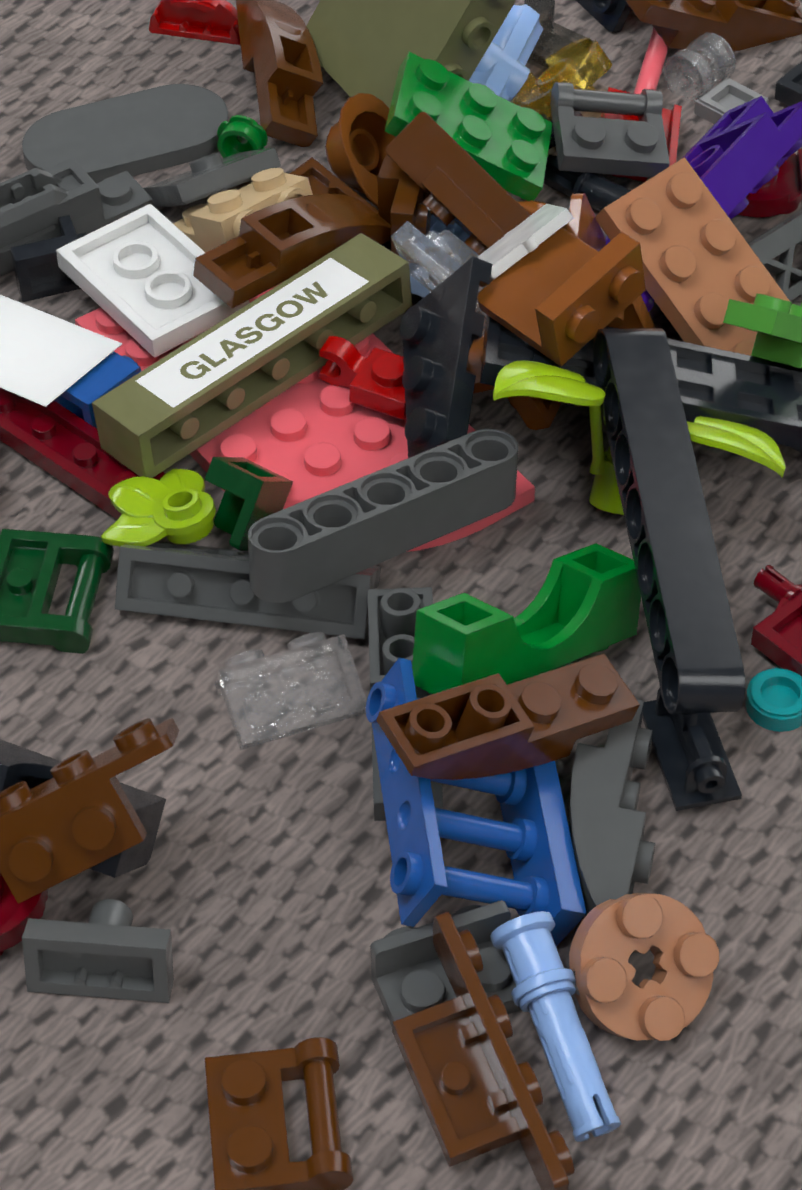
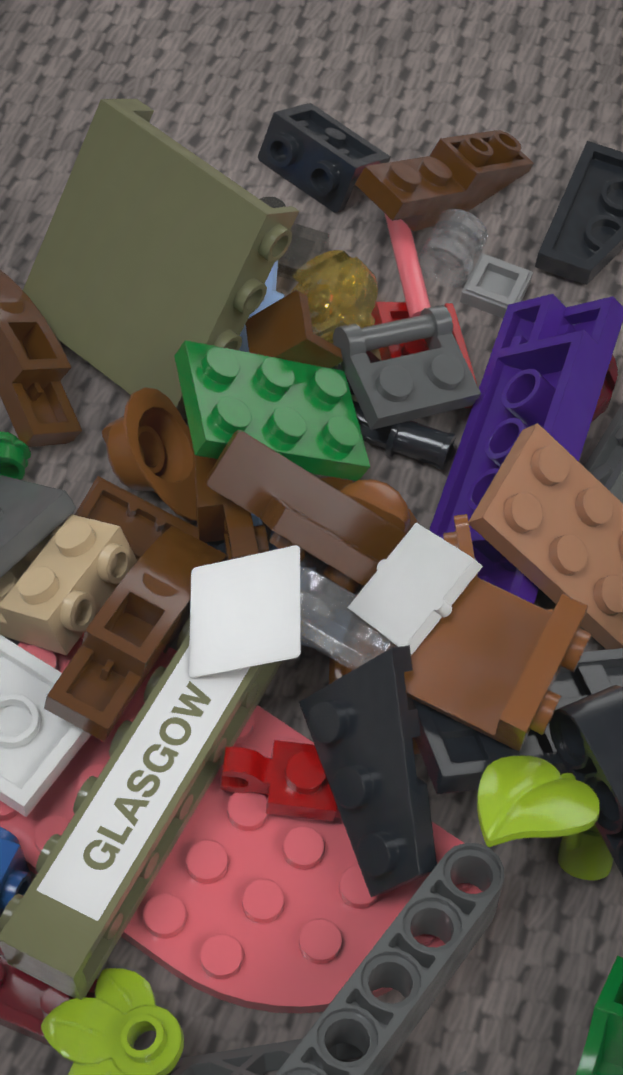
camera: 25 degrees left, 10 degrees up
(248, 495) = (209, 994): dark green panel -> none
(376, 235) = (245, 612): none -> white sticker
(507, 79) = (287, 333): none -> reddish brown panel

